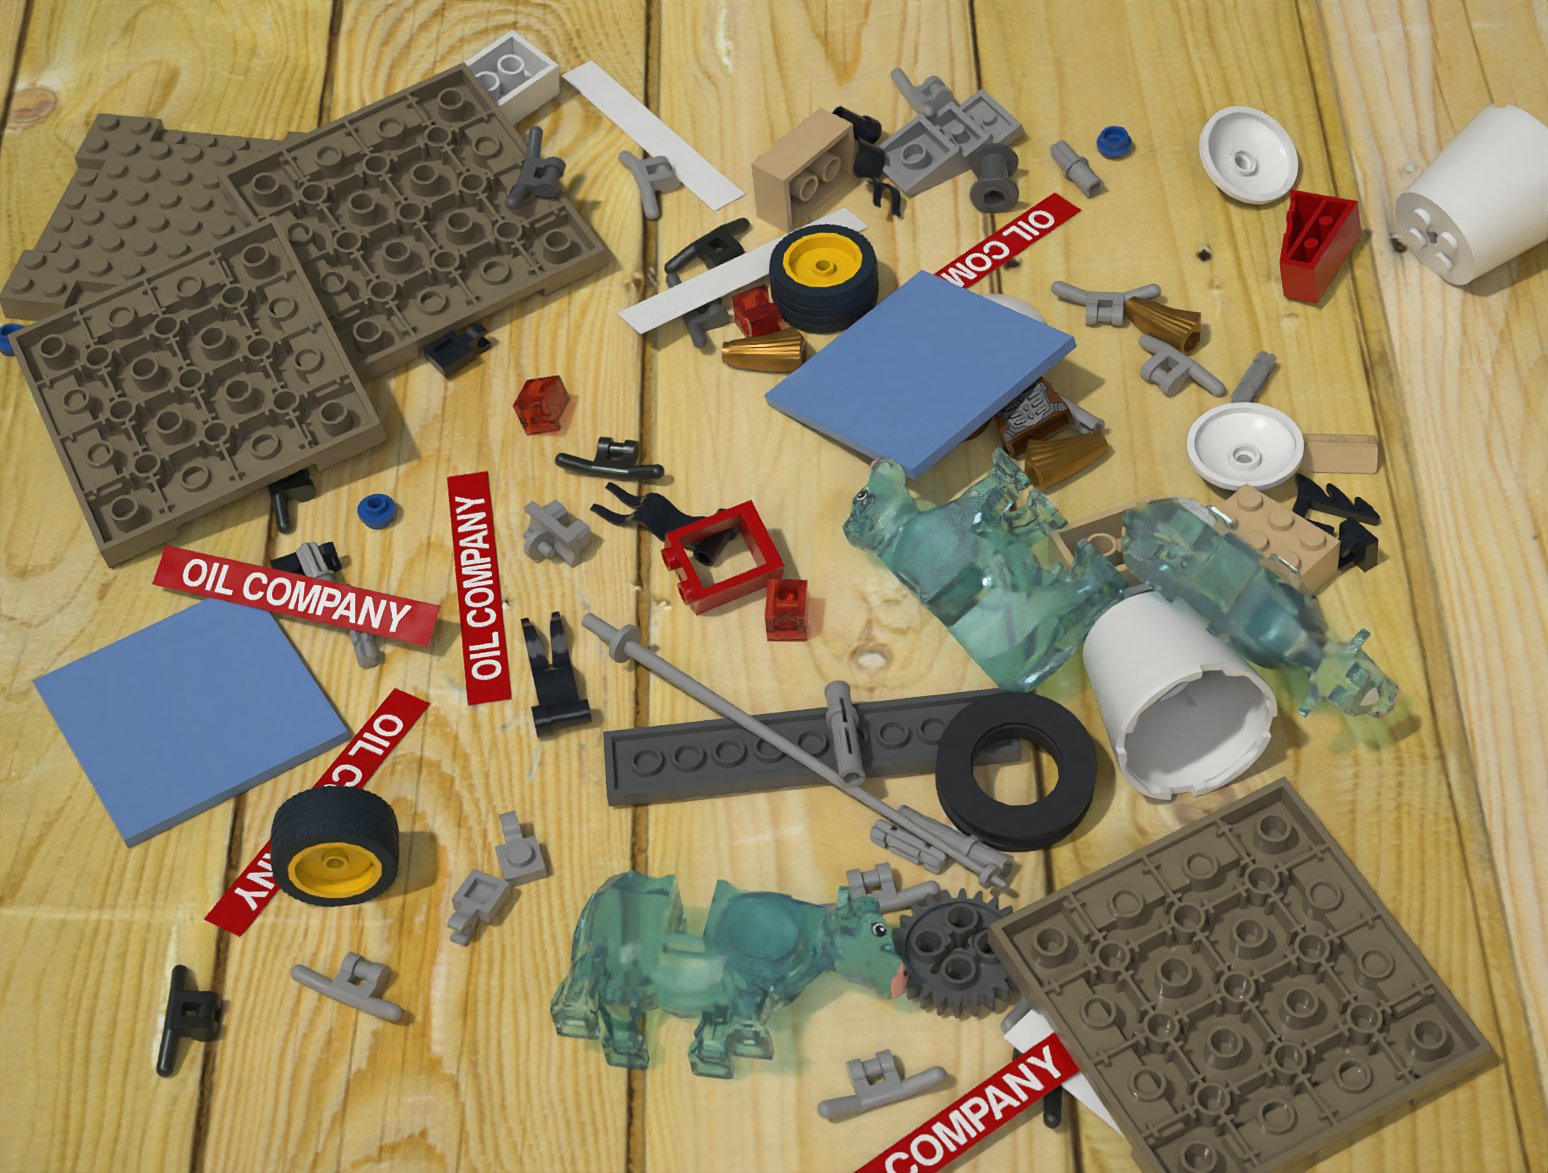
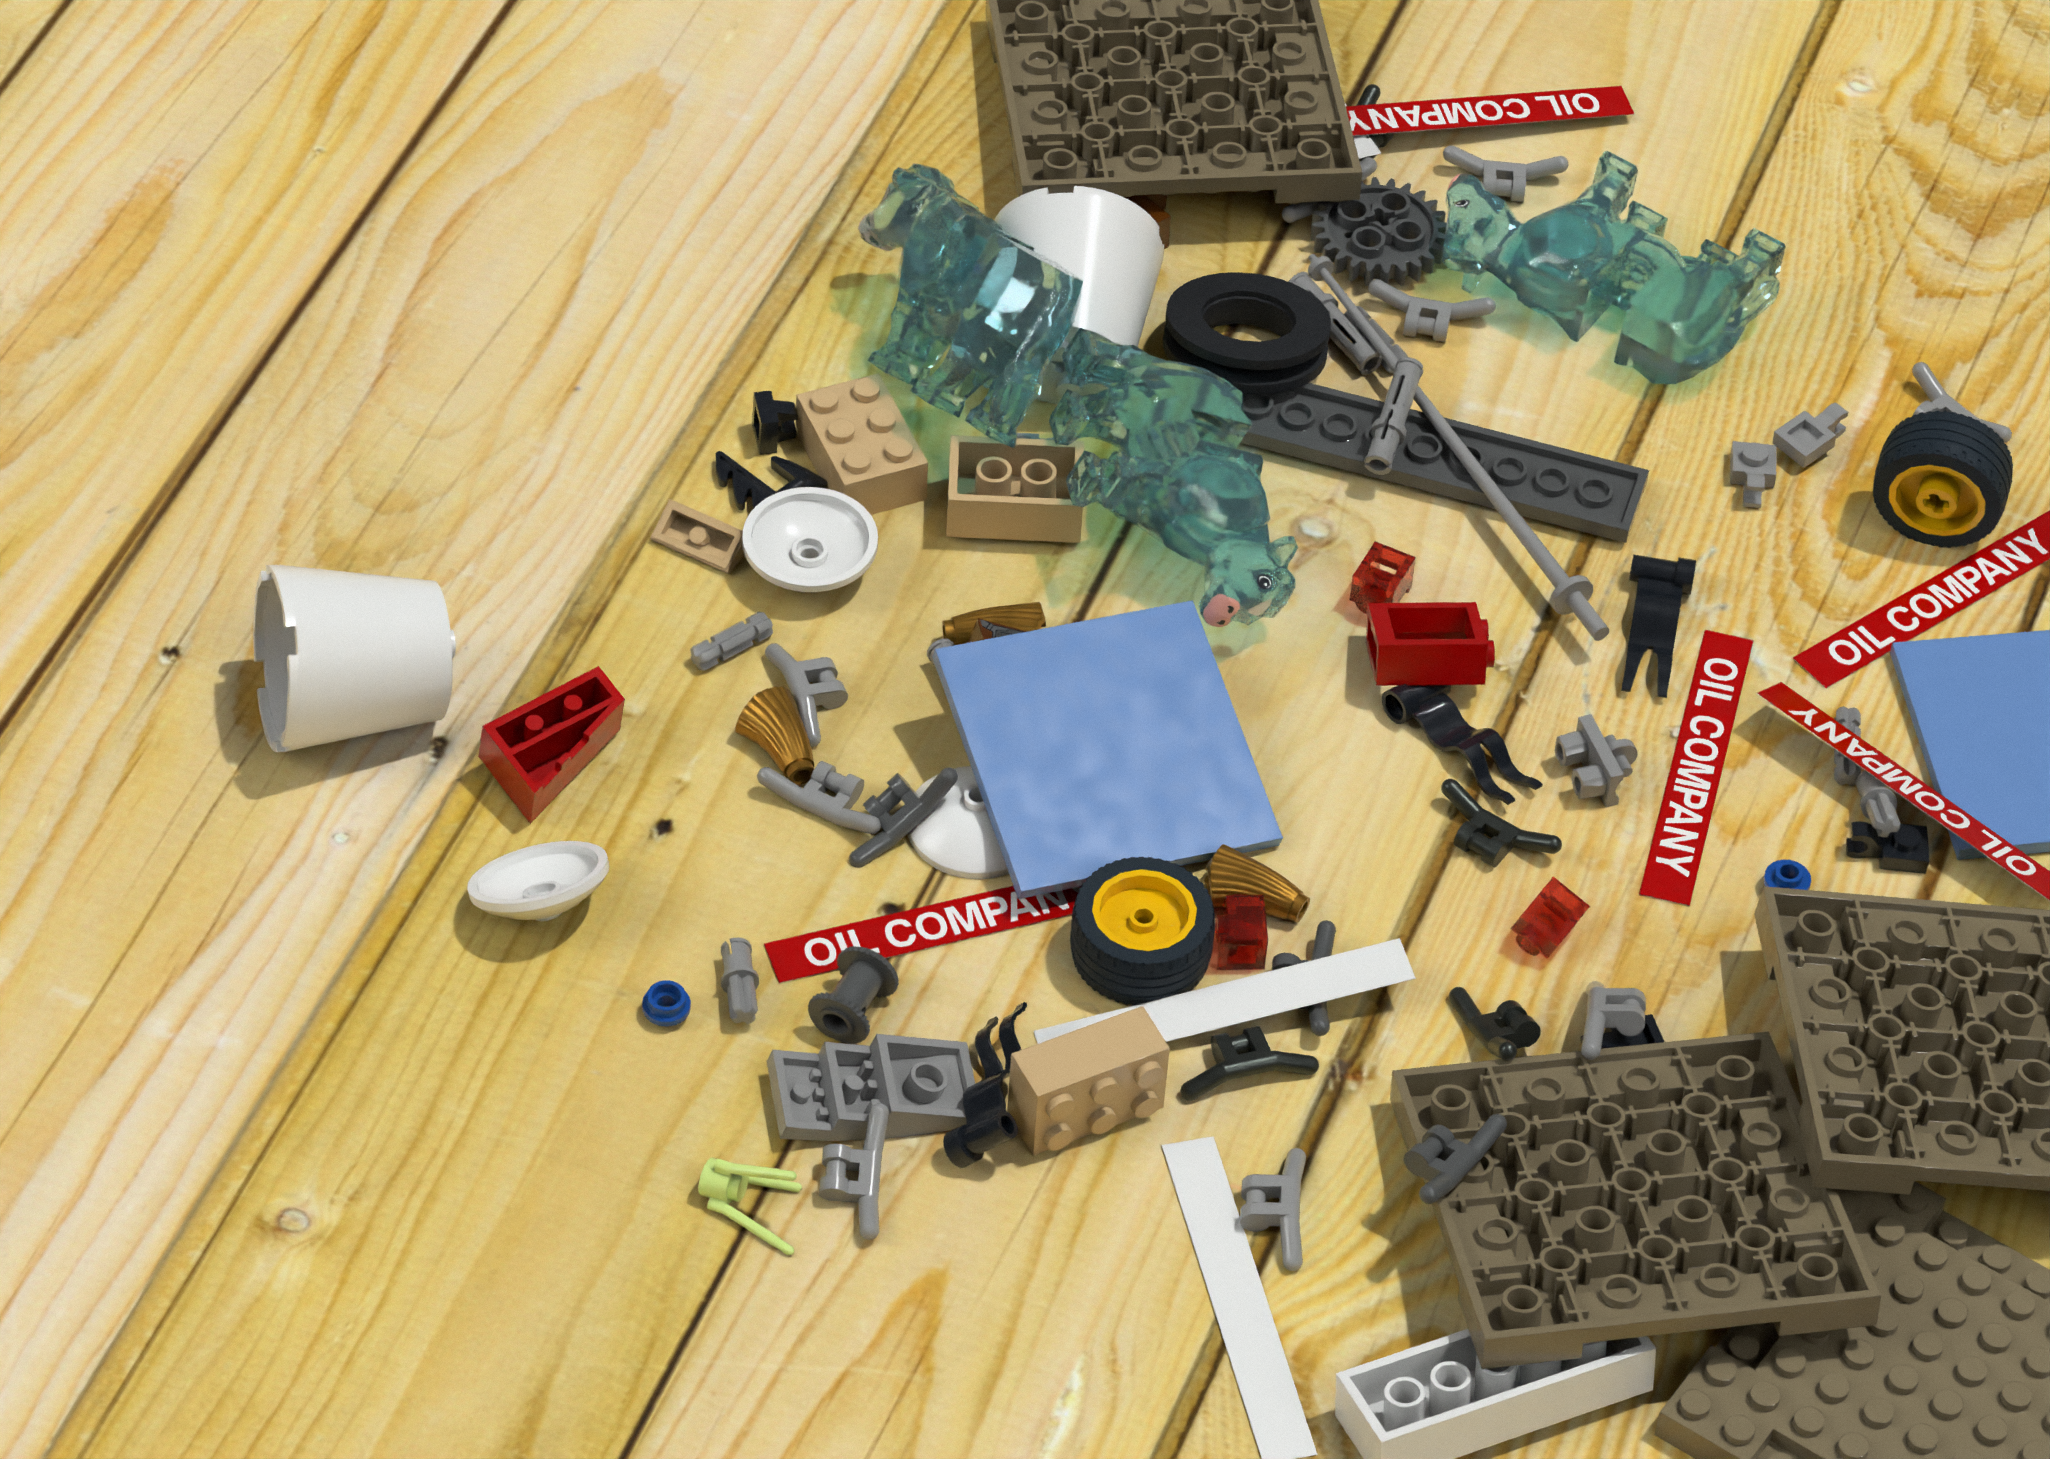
camera: 165 degrees left, 0 degrees up
(480, 348) = (1611, 1009): none -> light grey piece
(545, 312) = (1498, 1031): none -> pearl dark grey piece
(1001, 61) = (729, 1181): none -> yellowish green plant
(1044, 302) = (906, 818): none -> dark grey piece

